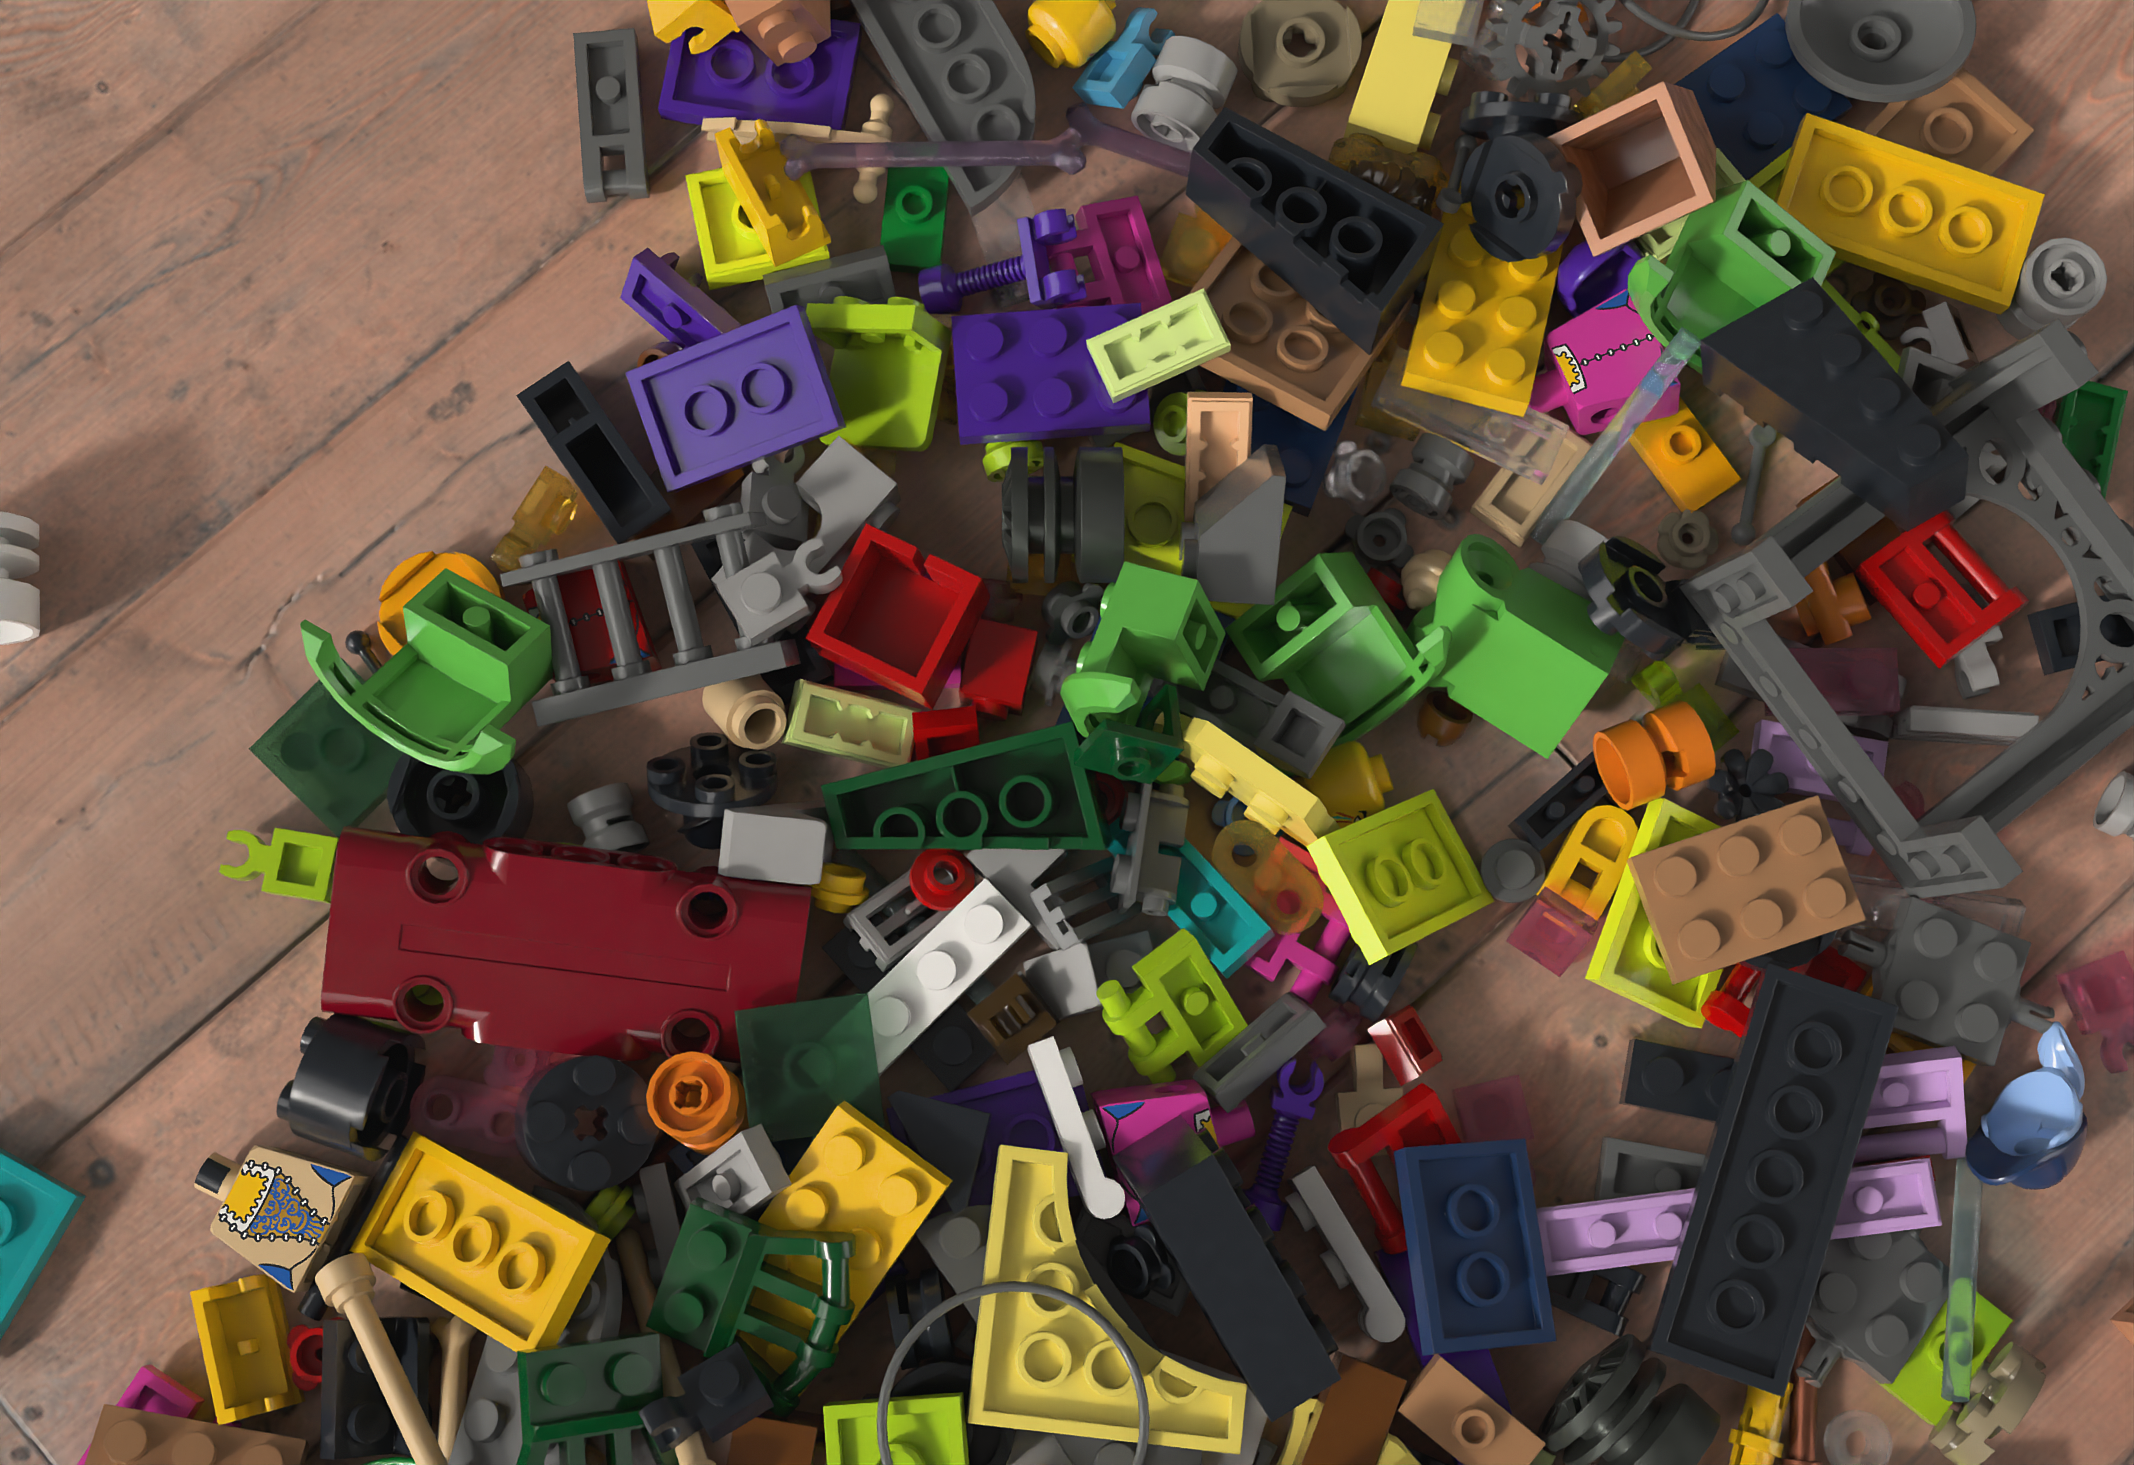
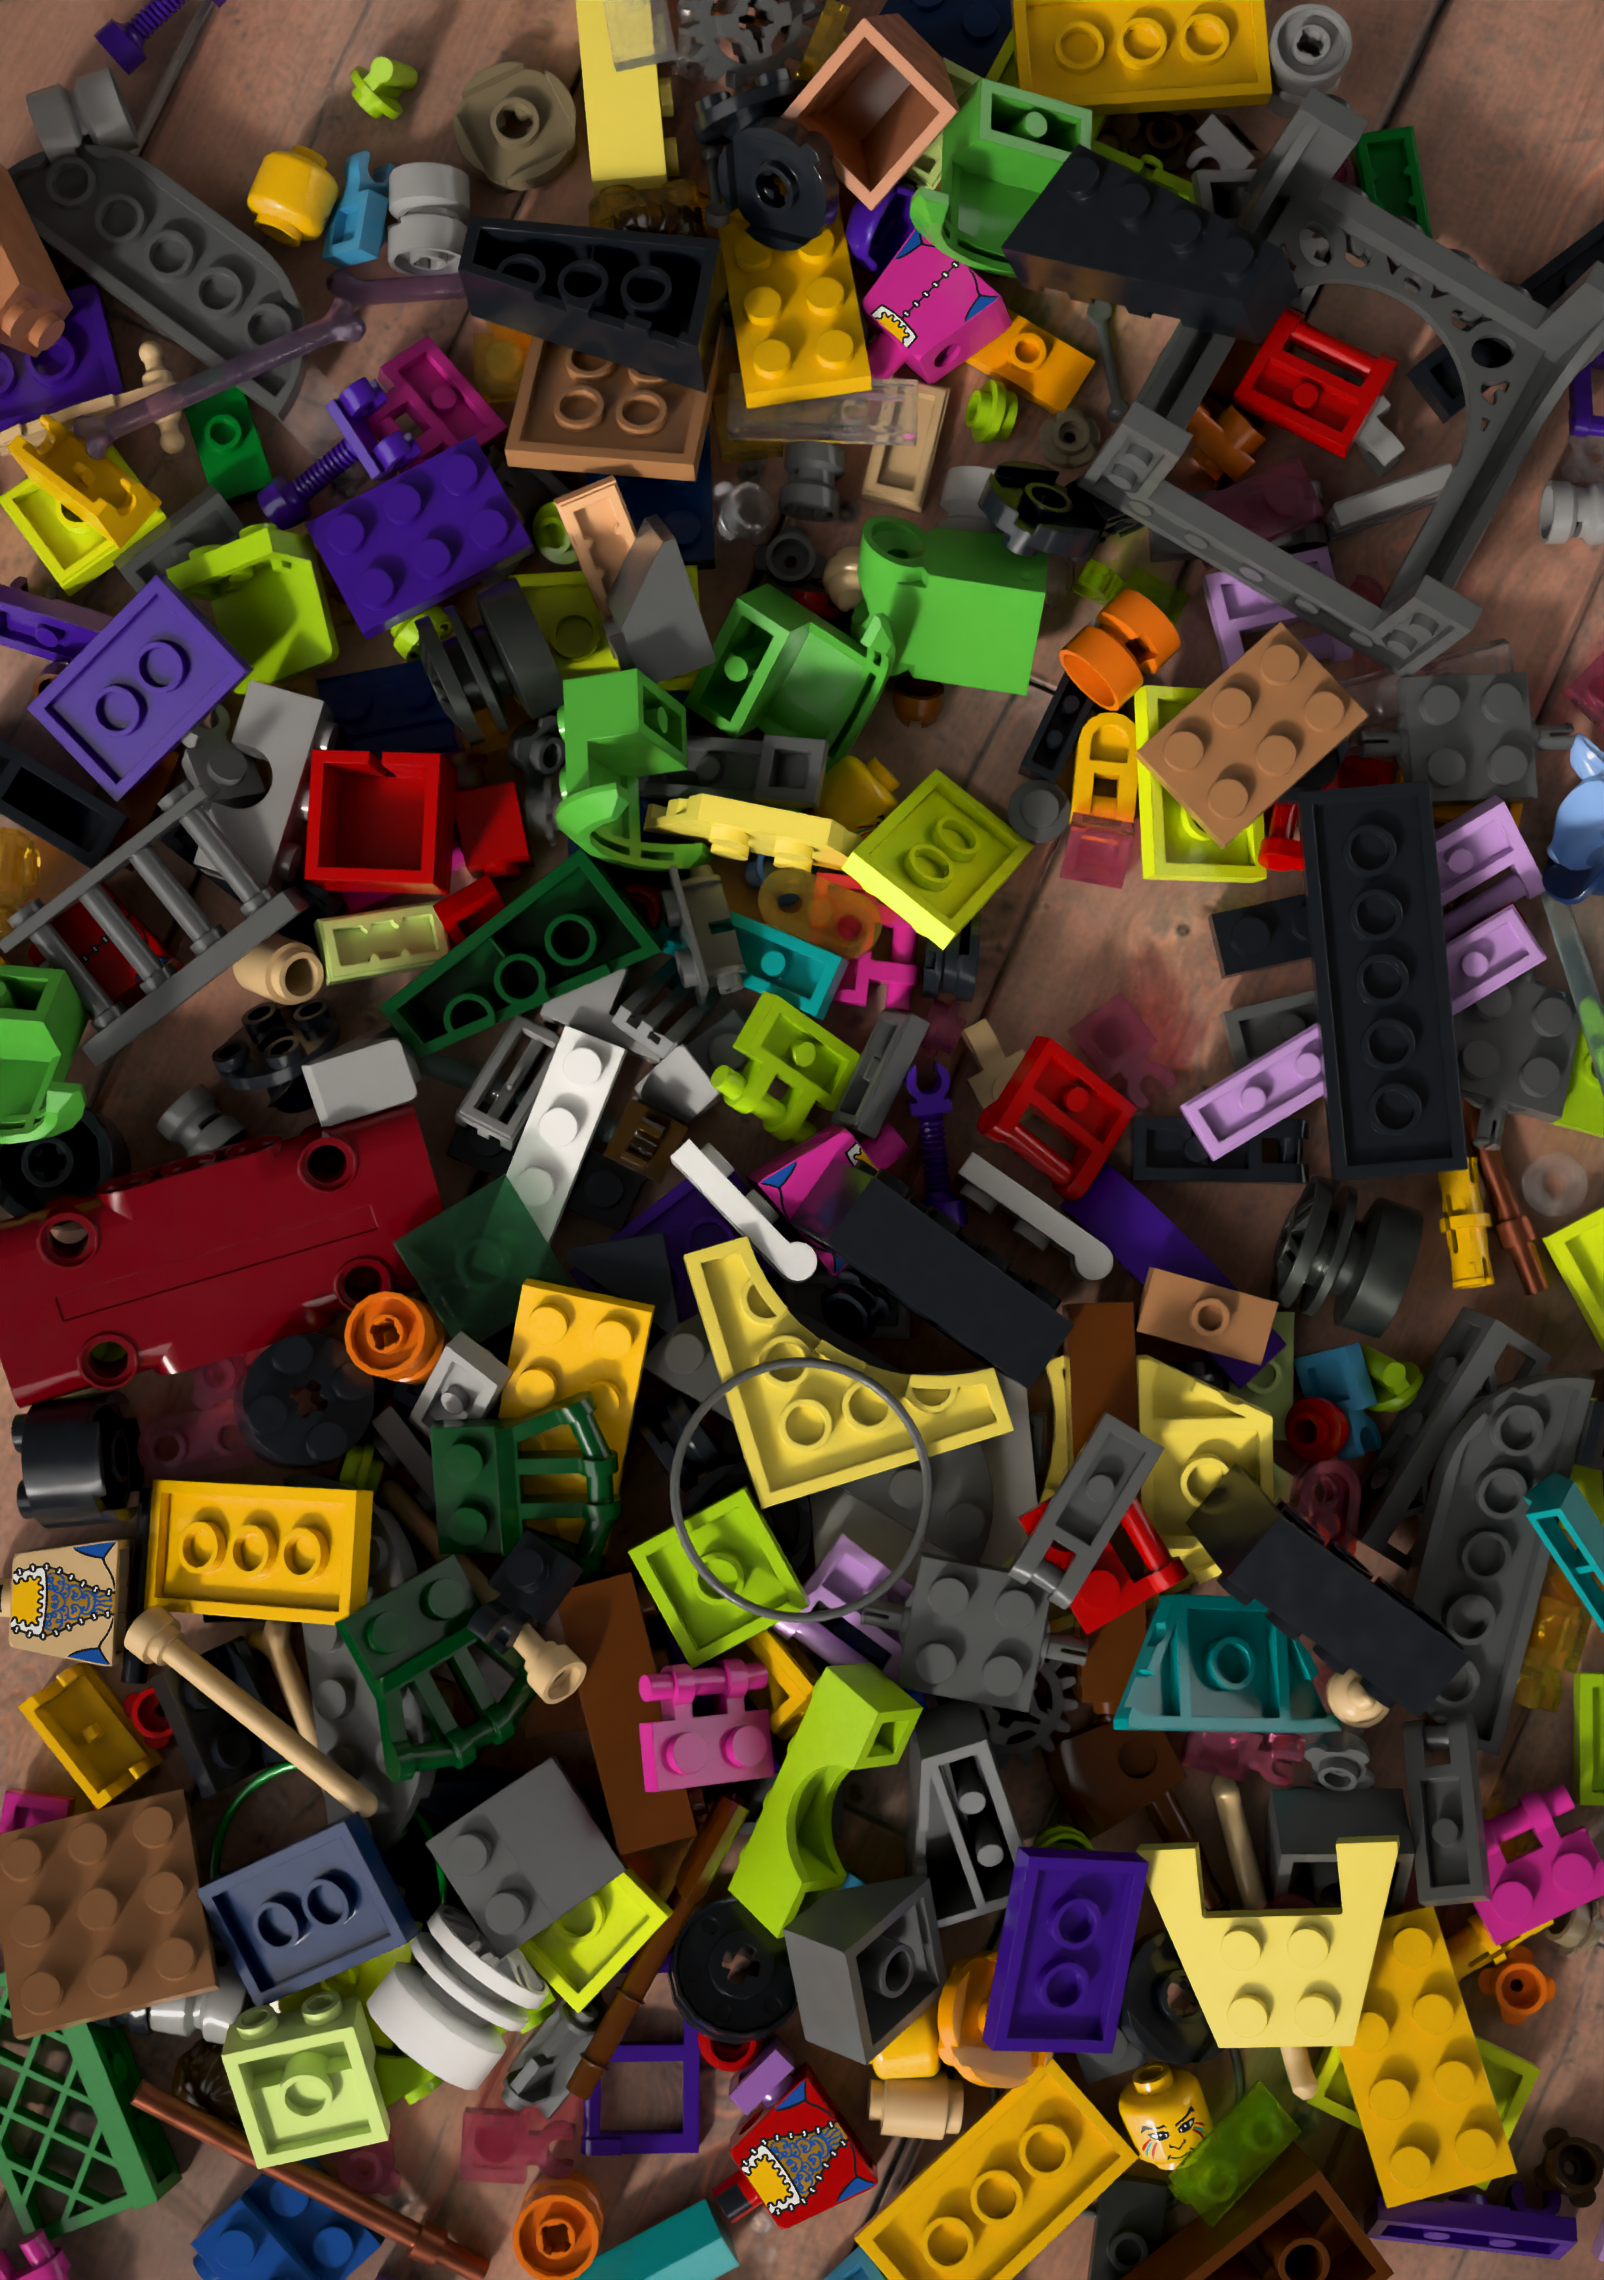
camera: 20 degrees left, 5 degrees up
(770, 596) = (254, 854): light grey plate -> none
(840, 888) = (438, 1093): yellow plate -> none
(933, 893) = (521, 1059): red plate -> none
(951, 517) = (388, 711): none -> plate
(1135, 750) = (646, 850): dark green bracket -> none
(1158, 345) = (507, 467): yellowish green plate -> none
(1405, 1044) = (1008, 1009): red tile -> none
(1474, 1246) = (1143, 1158): dark blue plate -> none
(1617, 433) = (963, 366): clear light blue bar -> none
(1625, 485) = (991, 412): none -> lime plate
(1746, 786) = (1214, 642): black plant -> none

